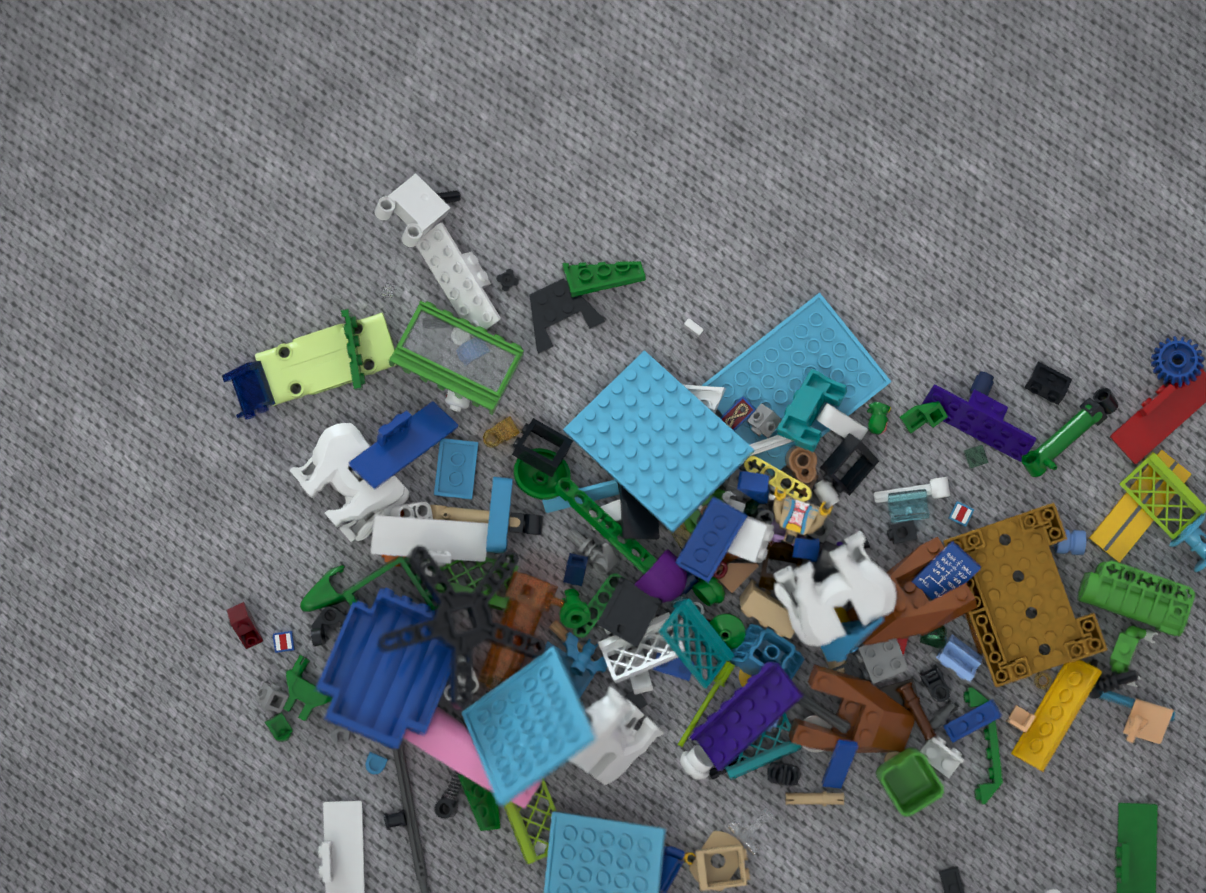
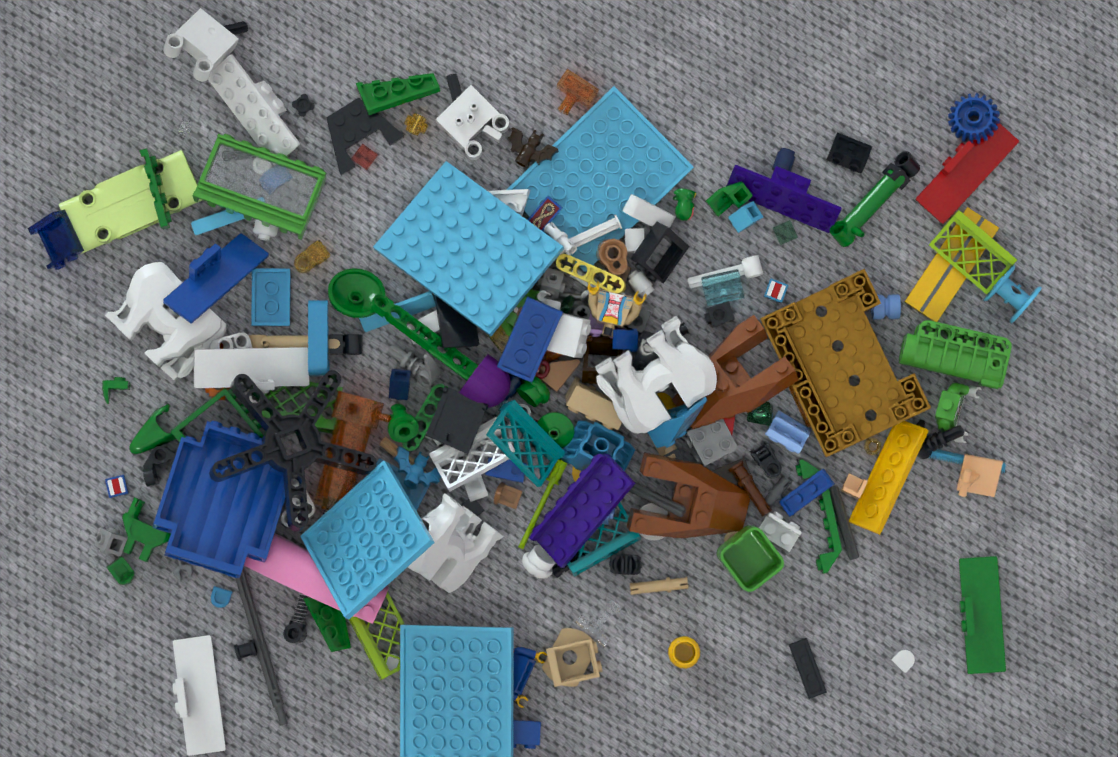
camera: 15 degrees left, 0 degrees up
(244, 625) = (76, 474): dark red slope -> none
(295, 539) = (118, 383): none -> green plate
(408, 387) = (215, 221): none -> medium azure slope
(535, 459) = (349, 279): black window -> none
(563, 338) = (364, 157): none -> clear red tile
(618, 310) = (415, 124): none -> clear yellow gear
(671, 308) = (468, 116): none -> white piece
(671, 692) = (507, 496): none -> medium nougat tile
(726, 349) = (528, 151): none -> dark brown animal
(751, 439) = (561, 238): none -> white pin
(754, 486) = (568, 283): blue slope -> none
(764, 421) = (571, 218): light grey brick -> none
(781, 293) = (576, 91): none -> clear orange brick
(806, 406) = (611, 199): teal bracket -> none
(825, 448) = (633, 239): none -> white panel
(833, 868) = (684, 652): none -> yellow piece
(839, 764) = (679, 548): blue tile -> none
(938, 437) = (745, 216): none -> medium azure brick
(946, 572) = (765, 347): blue tile -> none
(1006, 755) = (843, 523): none -> dark grey axle

